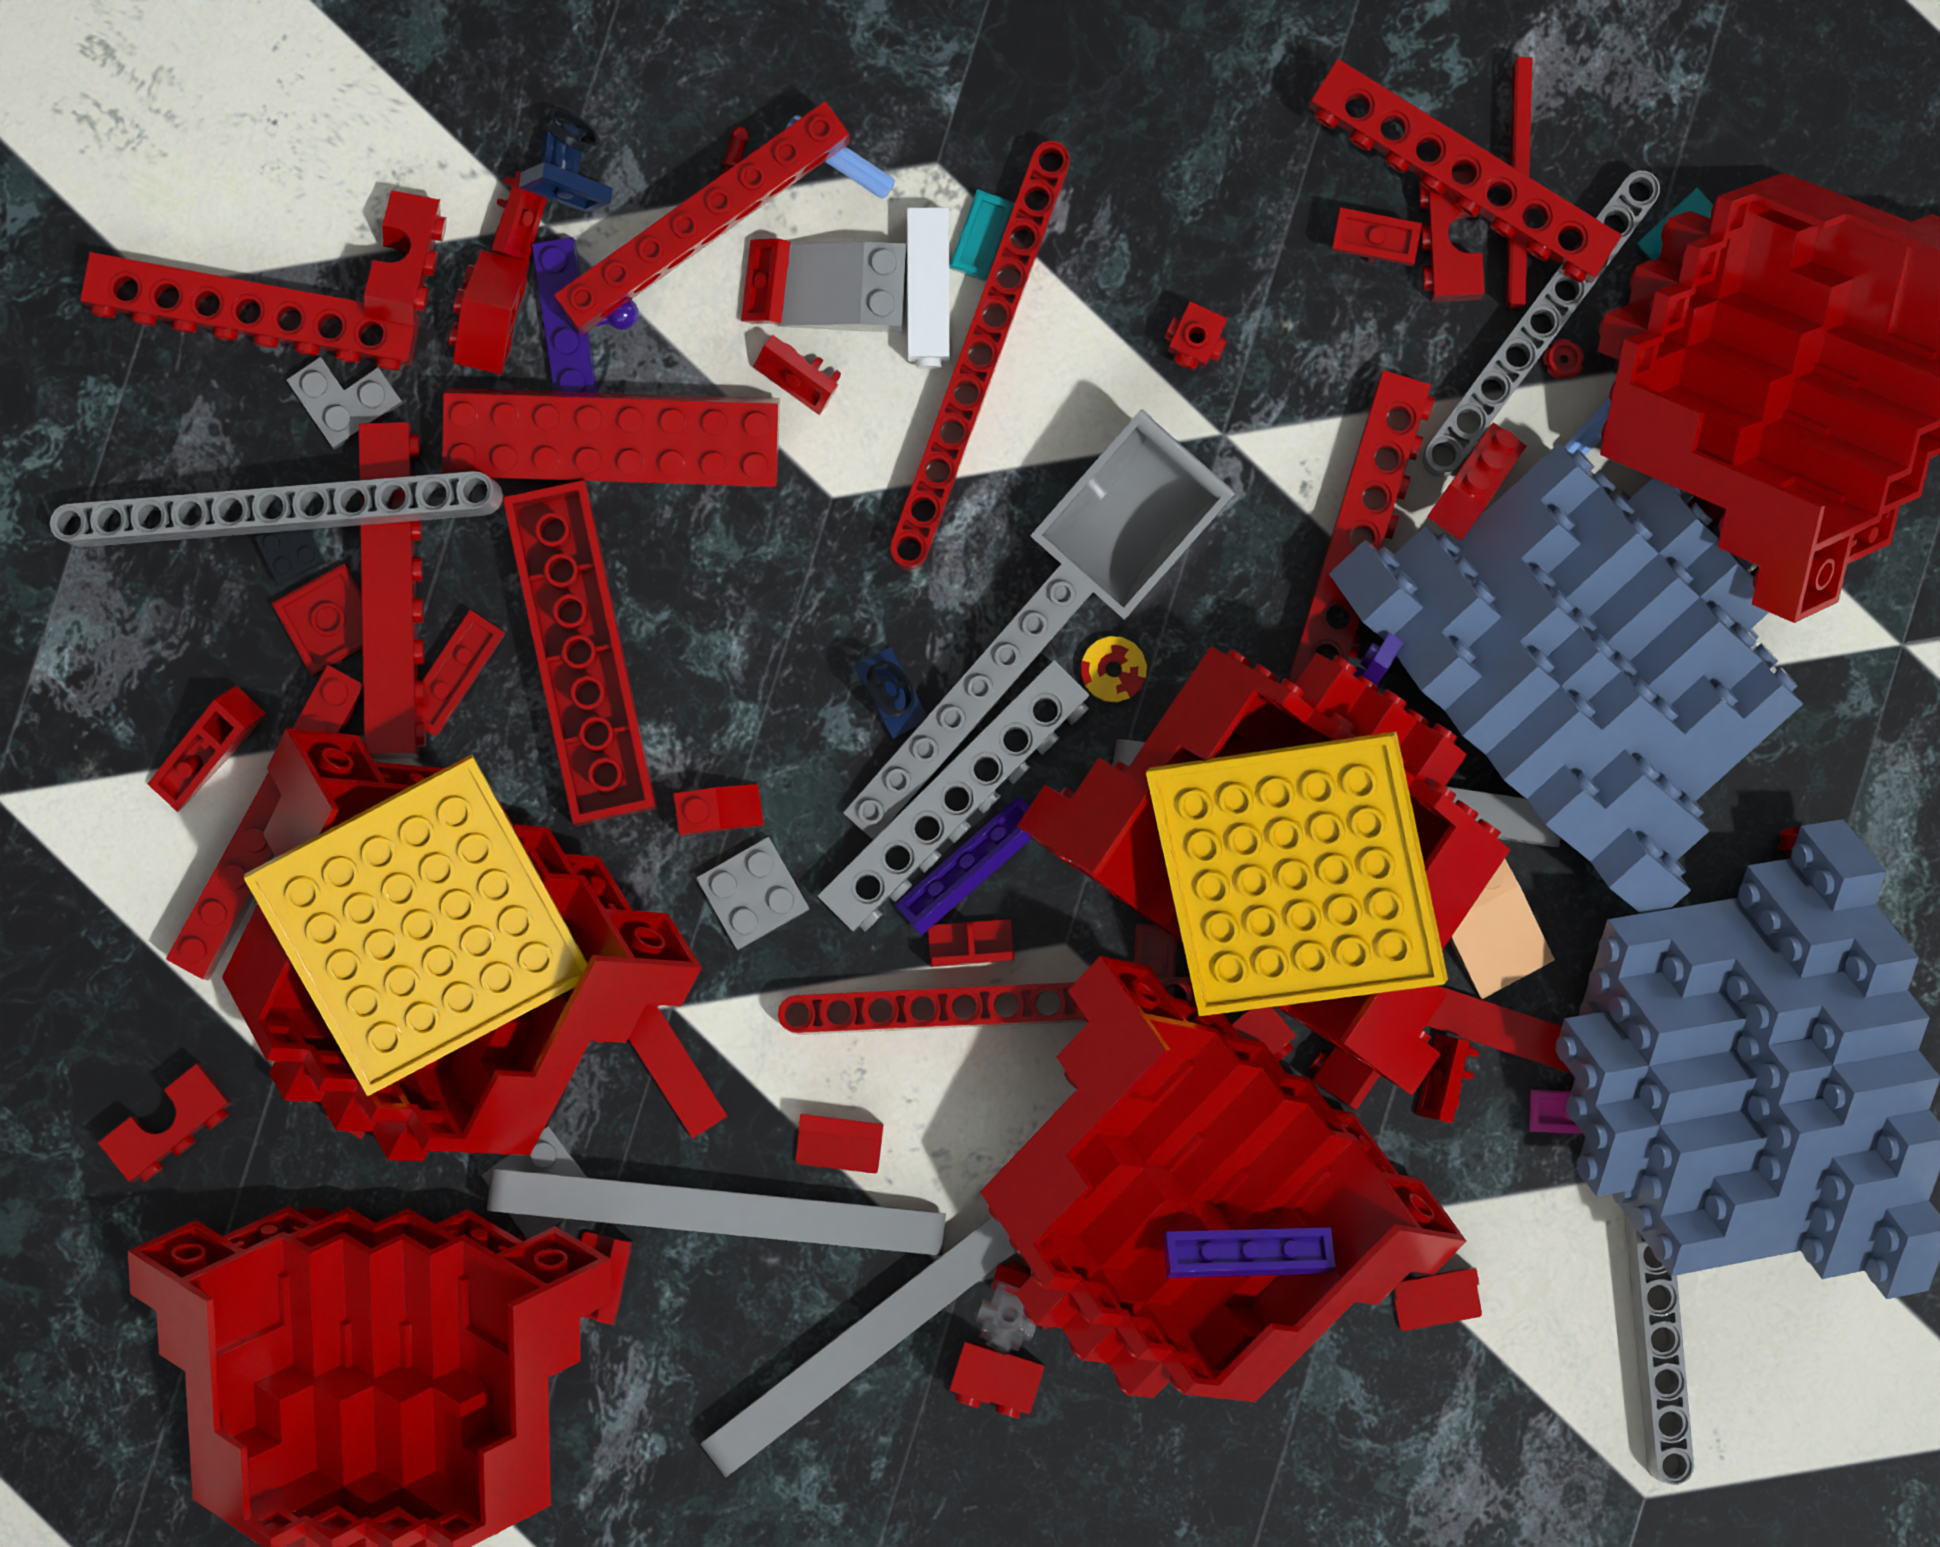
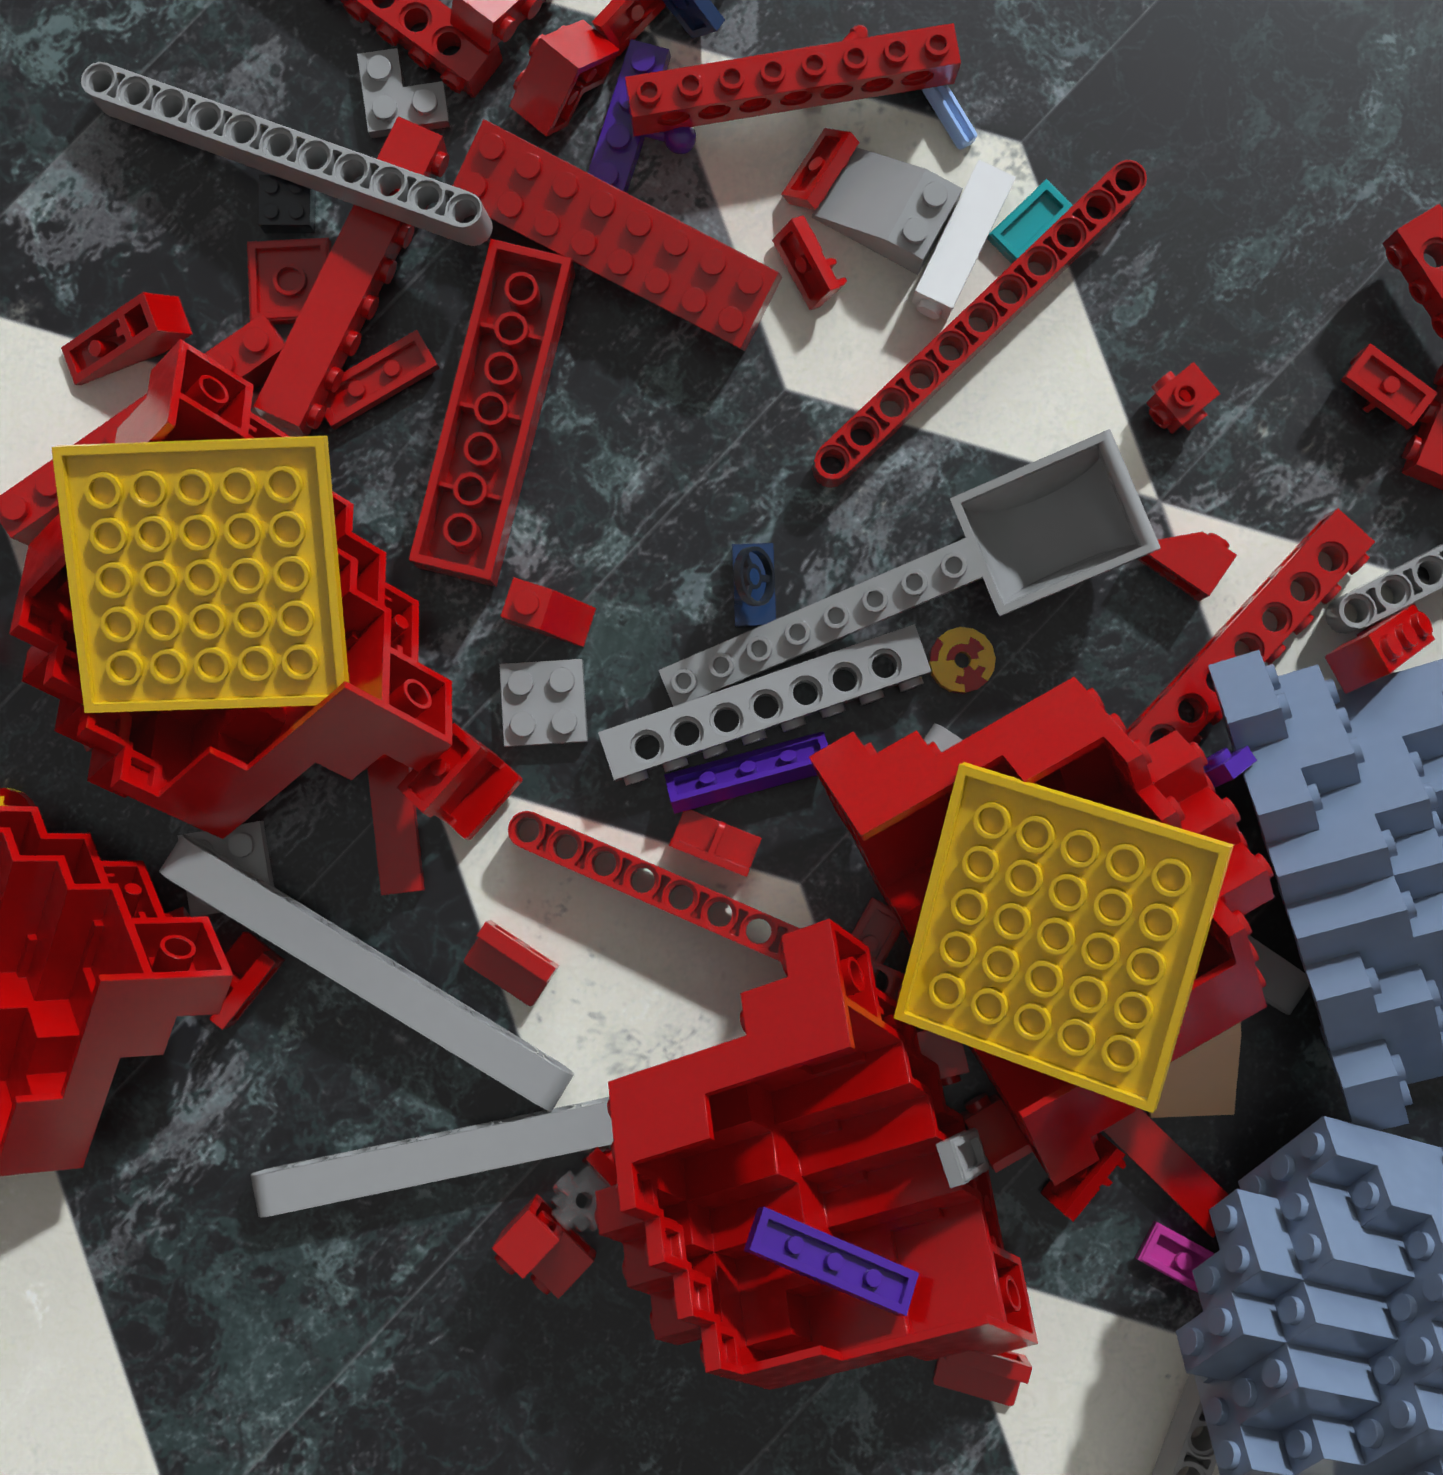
camera: 30 degrees right, 0 degrees up
(722, 1002) = (462, 784): none -> red panel
(1276, 479) = (1192, 562): none -> red slope
(1319, 1108) = (962, 1157): none -> light grey tile

